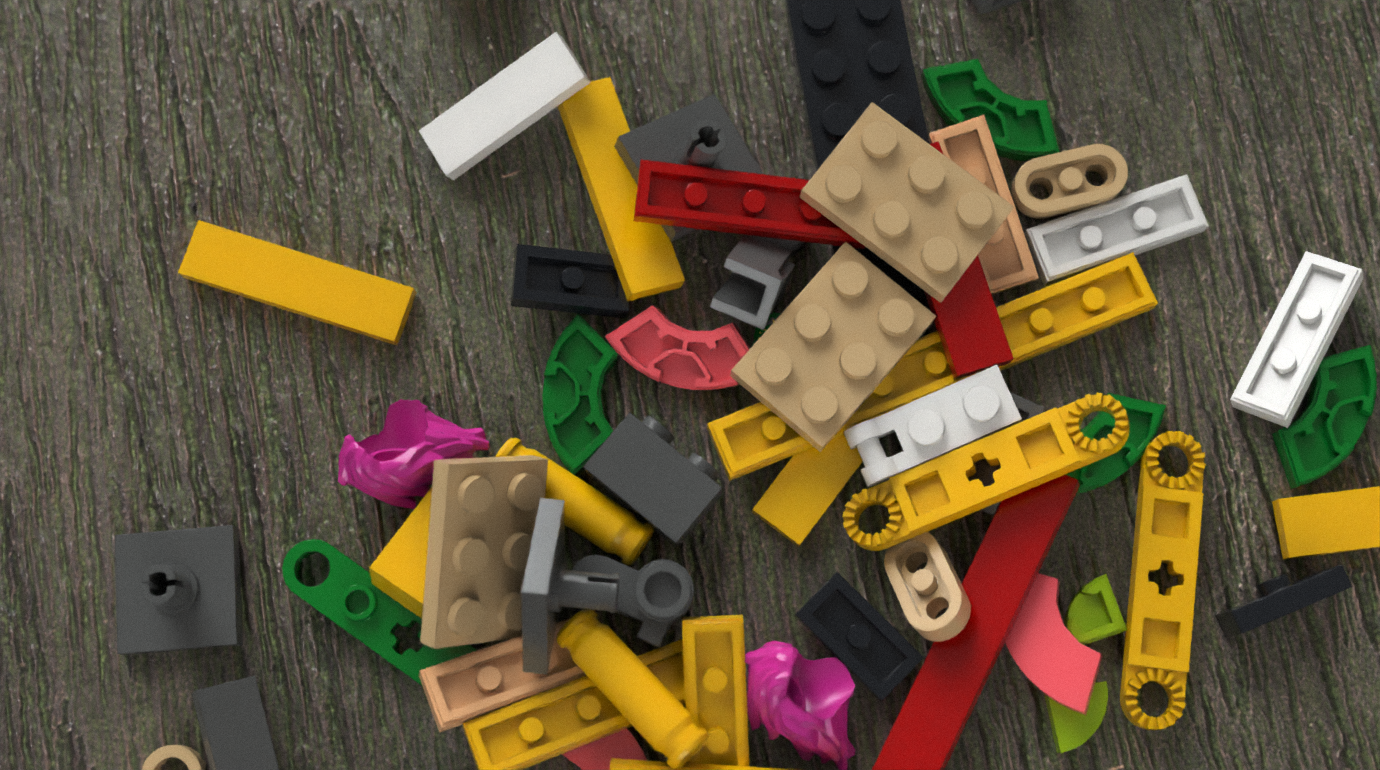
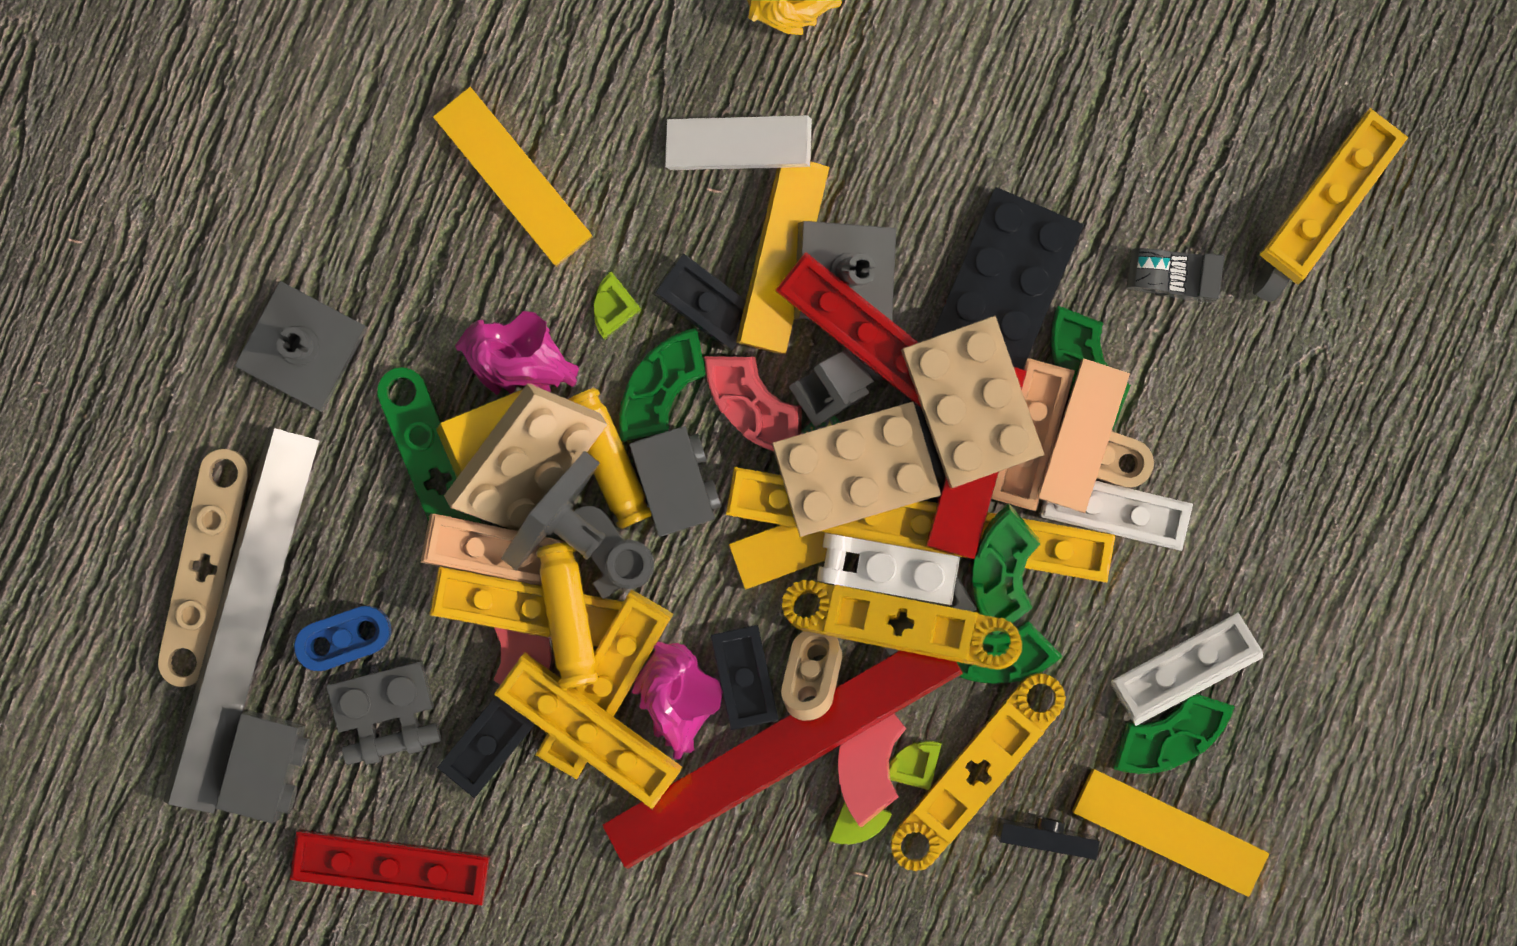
camera: 30 degrees right, 10 degrees up
(480, 346) = (613, 306): none -> lime tile
(1037, 171) = (1083, 435): none -> light nougat tile
(1043, 349) = (1000, 566): none -> green tile

